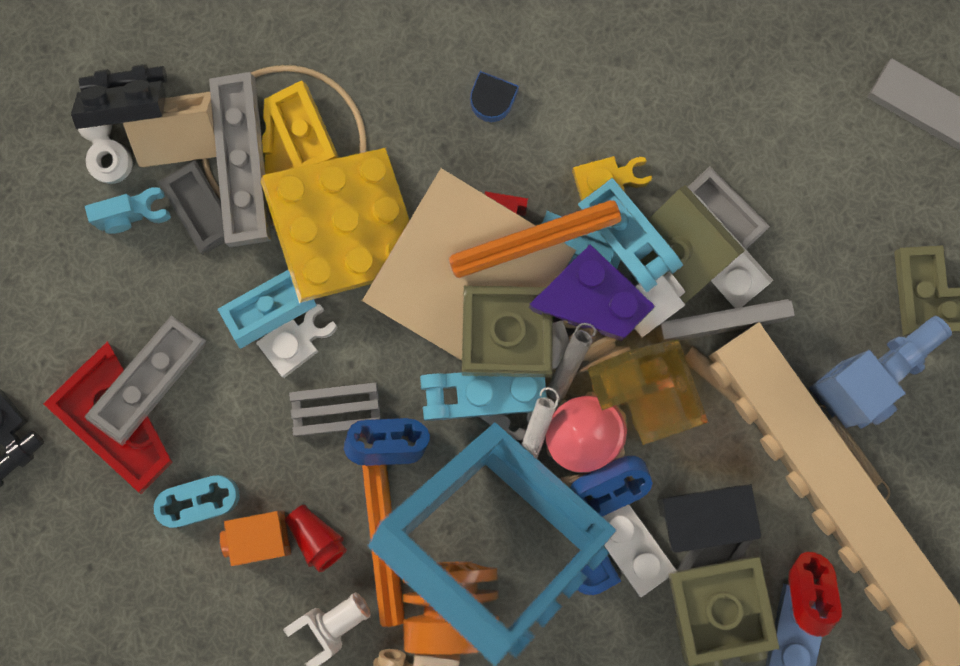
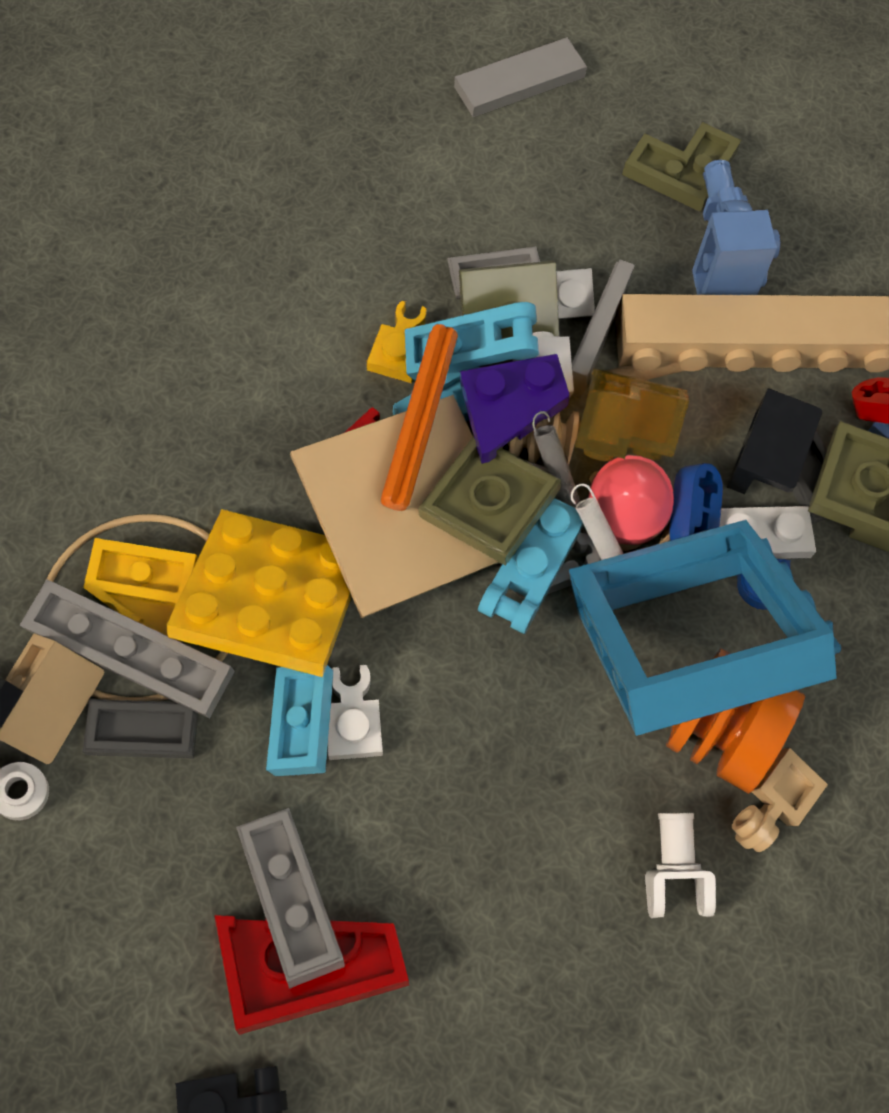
camera: 65 degrees left, 15 degrees down
(118, 212) = (85, 808): medium azure plate -> none
(199, 511) = (469, 932): medium azure beam -> none
(255, 538) = (538, 883): orange brick -> none
(299, 413) = (470, 682): light grey tile -> none
(317, 541) = (575, 822): red cone -> none
(386, 580) = (615, 756): orange axle -> none
(387, 442) = (530, 688): blue beam -> none
(492, 97) = (245, 390): black tile -> none

